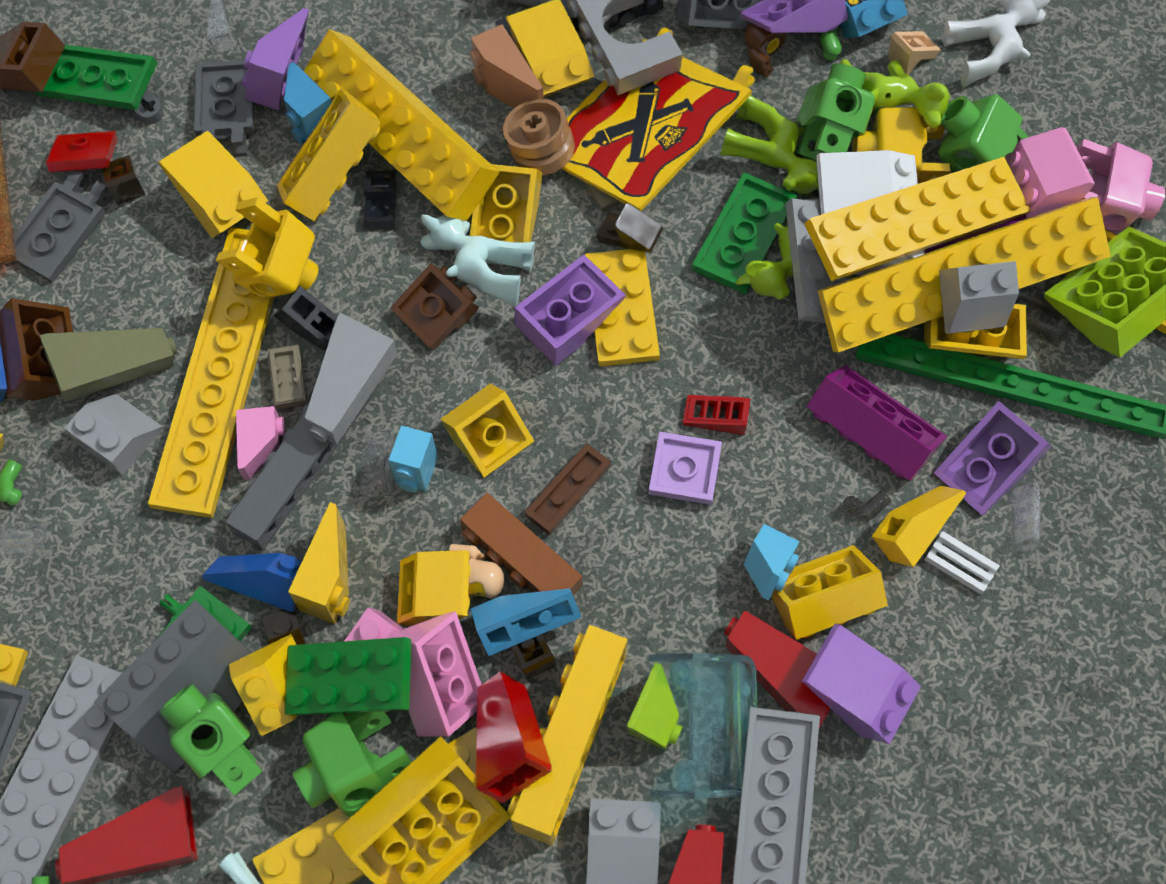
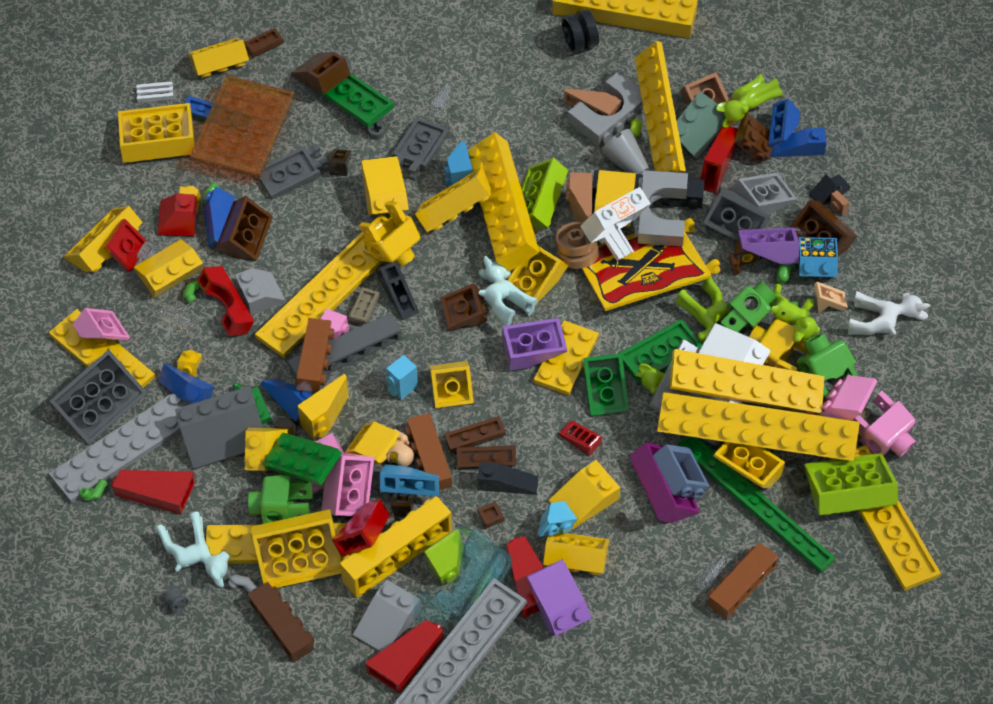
camera: 30 degrees right, 10 degrees down
(43, 454) = (216, 283): none -> red arch
(70, 606) = (189, 362): none -> yellow bracket
(82, 151) = (326, 136): red plate -> none
(87, 645) = (185, 385): none -> blue slope
(104, 359) = (275, 250): olive slope -> none
(222, 749) = (221, 463): bright green piece -> none
(264, 495) = (314, 355): none -> dark orange brick
(270, 60) = (458, 130): medium lavender slope -> none
(347, 377) = (392, 319): light grey slope -> none
(380, 199) = (471, 239): black slope -> none
(438, 78) = (541, 191): none -> lime slope
(572, 83) = (609, 219): none -> white piece
(606, 514) = (491, 454): none -> reddish brown plate
(630, 230) = (596, 319): slope -> none
(655, 535) = (502, 478): none -> black slope
(668, 601) = (490, 515): none -> reddish brown plate
(685, 468) = (544, 455): lavender plate -> none
(702, 317) = (605, 384): none -> green slope
(782, 492) = (588, 492): none -> yellow slope
(897, 393) = (681, 471): none -> sand blue window
(914, 525) = (642, 543): yellow slope -> none
(967, 552) = (653, 562): white tile -> none
(978, 296) = (751, 439): light grey slope -> none
(992, 458) = (715, 532): medium lavender slope -> none
(1077, 508) = (742, 580): none -> dark orange brick

